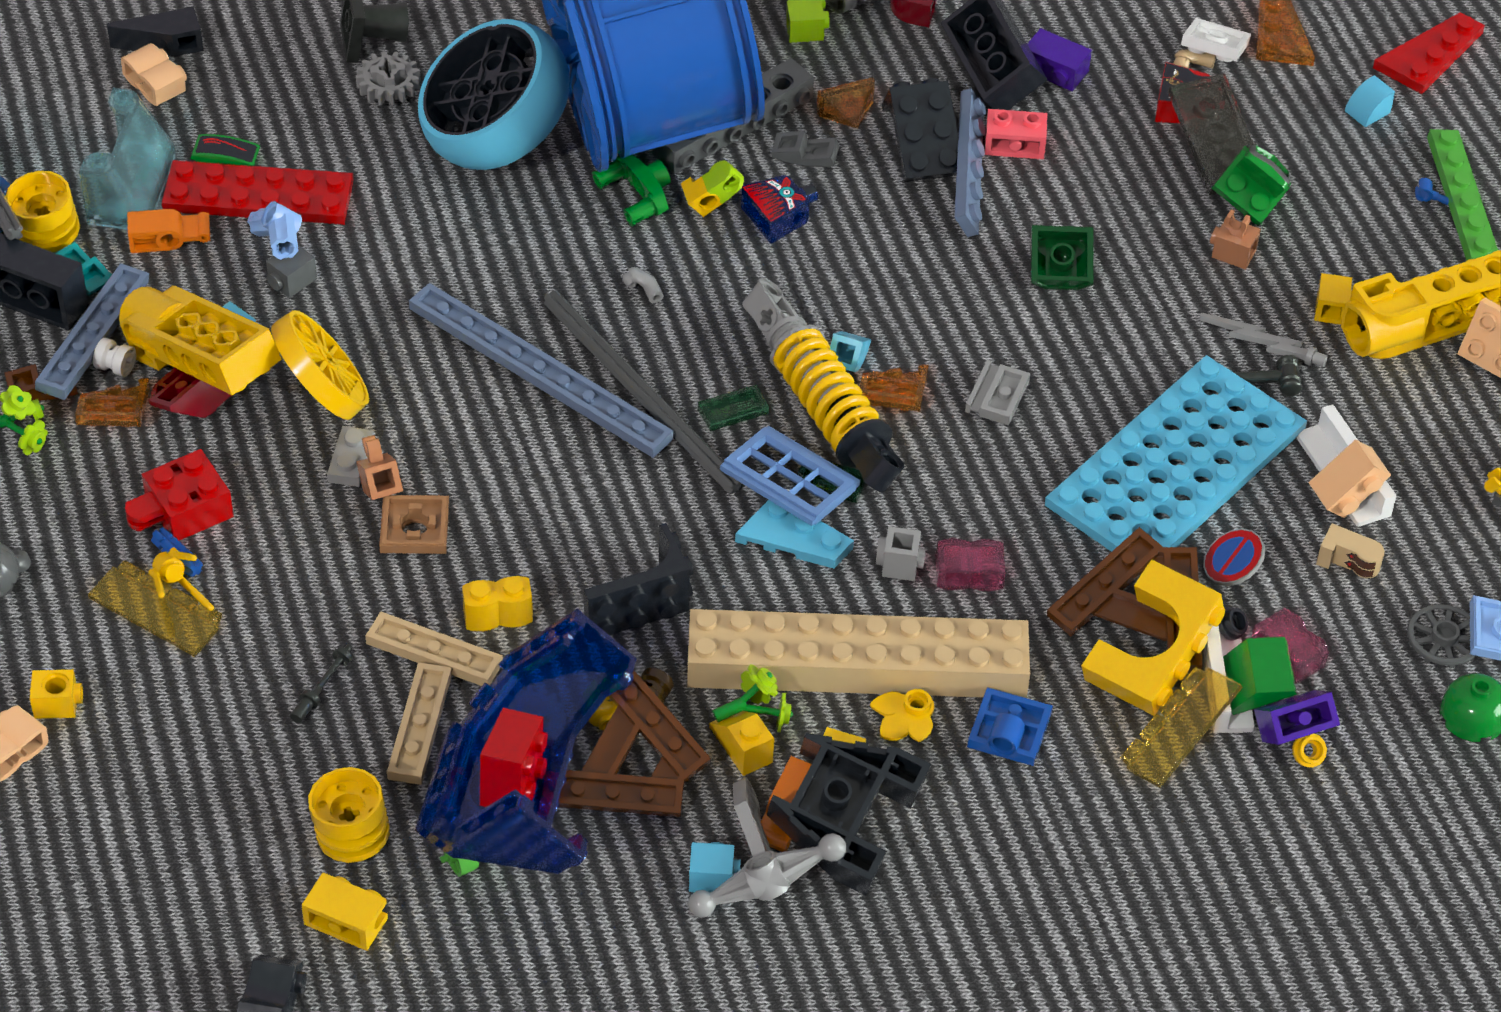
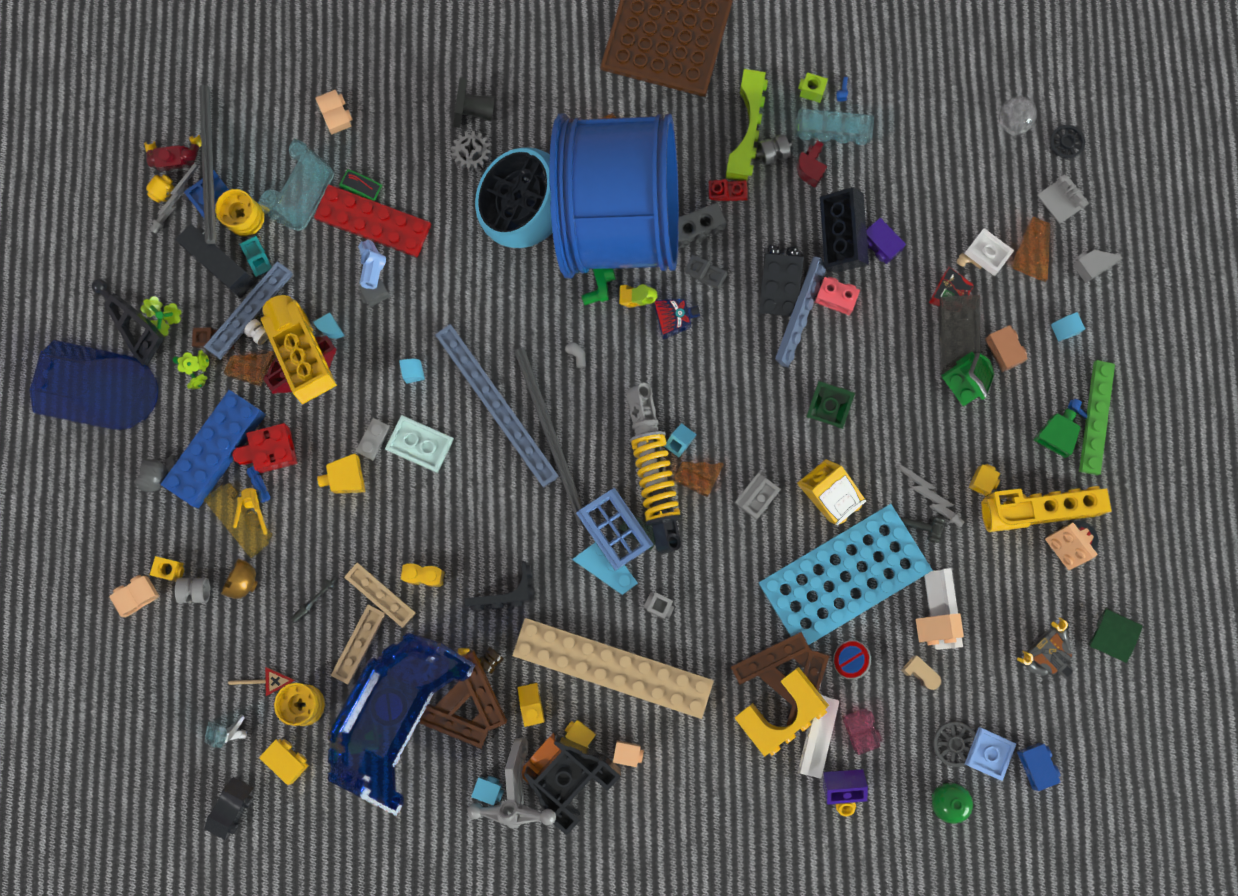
camera: 20 degrees right, 30 degrees up
(85, 519) = (212, 449): none -> blue brick
(121, 706) = (195, 590): none -> light grey wheel
(165, 229) = (310, 239): orange piece -> none
(172, 30) = (349, 79): black slope -> none
(189, 676) = (240, 580): none -> pearl gold cylinder
(221, 890) = (218, 735): none -> piece
(286, 812) = (273, 680): none -> piece
(320, 364) = (356, 372): yellow piece -> none
(320, 507) = (344, 476): none -> yellow torso
(378, 471) = (381, 464): nougat brick -> none
(385, 353) = (411, 370): none -> medium azure brick
(406, 509) = (387, 489): medium nougat piece -> none
(432, 445) = (419, 443): none -> light aqua tile
(512, 756) = (388, 713): red brick -> none
(733, 407) = (600, 462): clear green tile -> none
(758, 687) = (546, 686): plant -> none
(805, 52) = (728, 191): none -> red slope
(846, 102) = (743, 243): clear orange slope -> none
(902, 717) = (624, 716): yellow plate -> none
(934, 743) = (628, 754): none -> light nougat brick
(970, 564) = (698, 620): clear pink brick -> none
(1010, 726) = (682, 740): blue plate -> none
(1112, 358) = (832, 491): none -> slope
(1186, 723) = (774, 777): clear yellow windscreen -> none
(1233, 623) = (834, 708): black plate -> none
(1235, 241) = (940, 419): nougat brick -> none
(1262, 670) = (834, 751): green slope -> none
(1292, 140) = (1006, 348): none -> nougat brick
(1374, 25) = (1094, 263): none -> light grey slope
(1417, 224) = (1059, 433): none -> green torso
(1430, 54) = (1120, 294): red wing -> none

